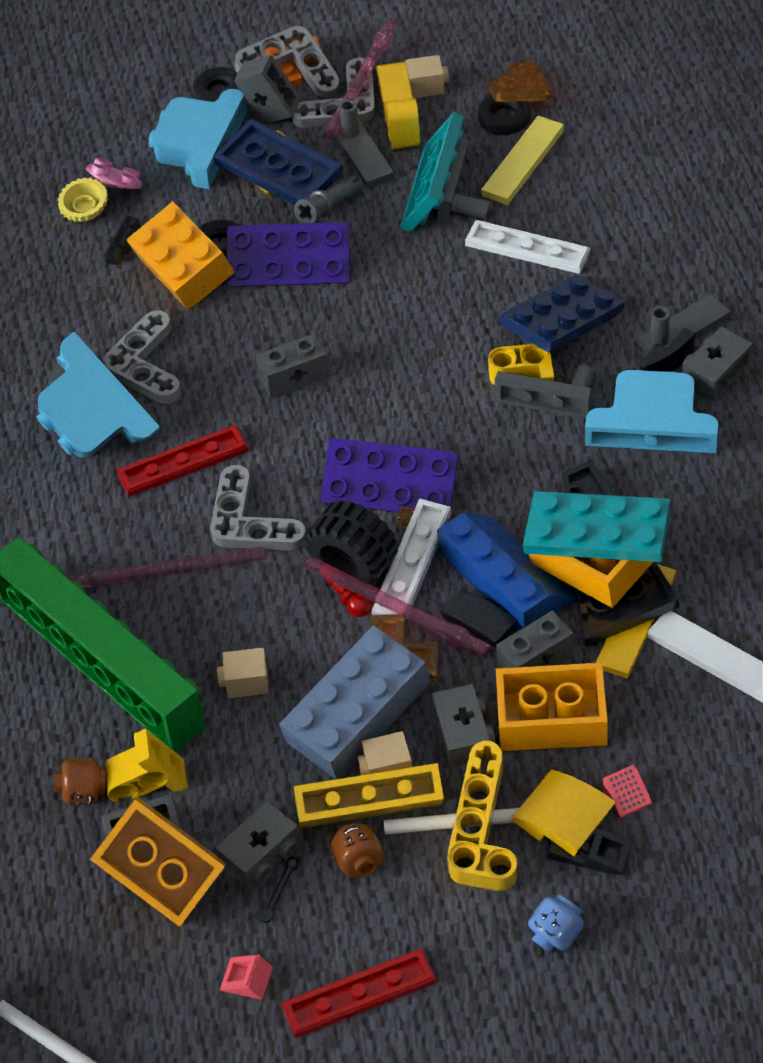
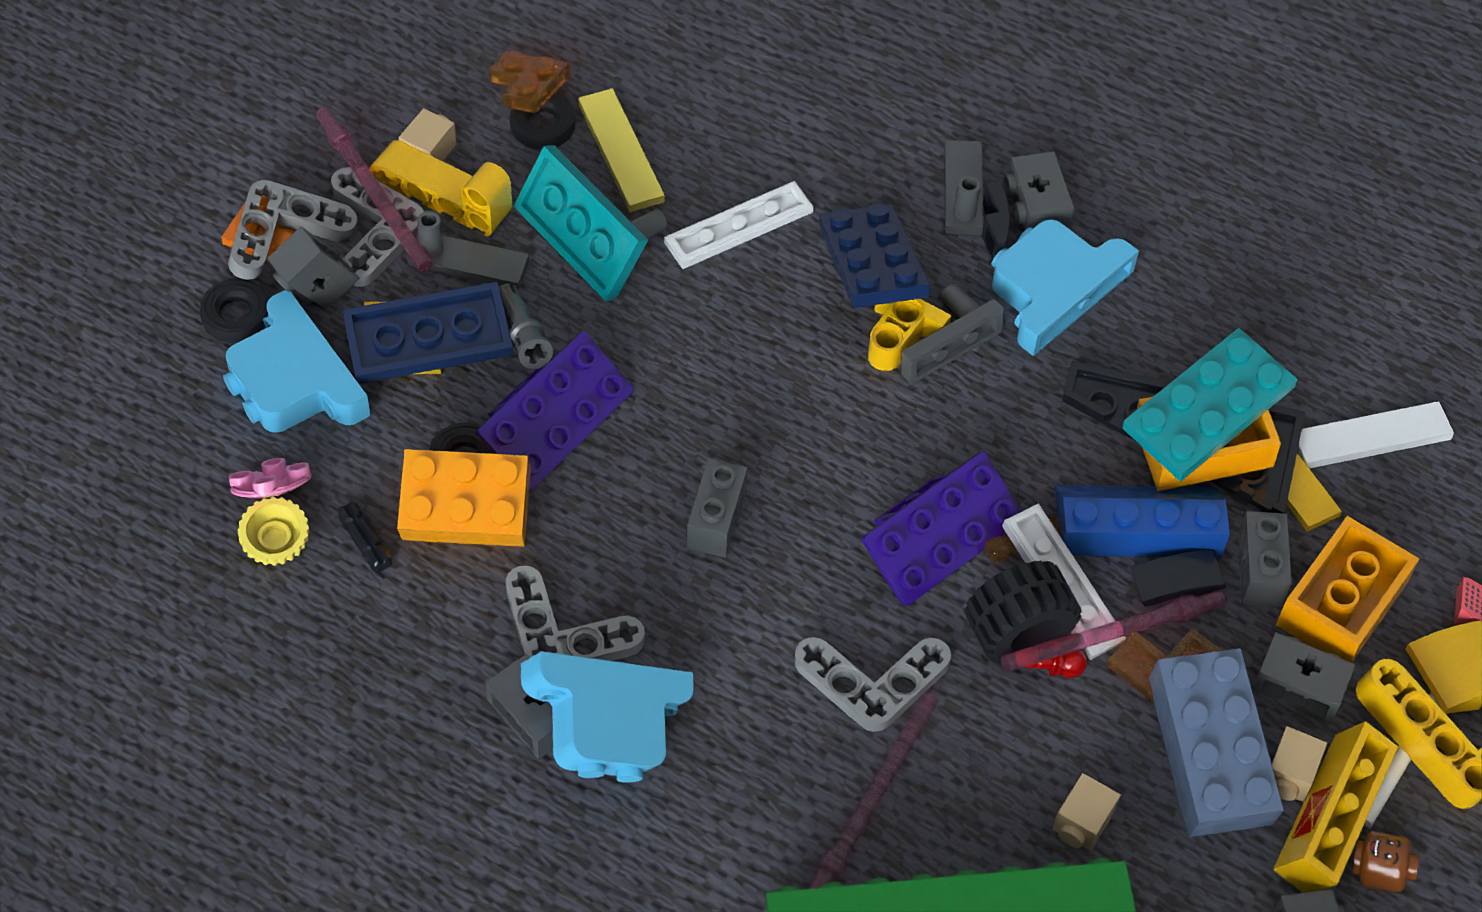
camera: 60 degrees left, 5 degrees up
(182, 460) = (738, 687): red tile -> none

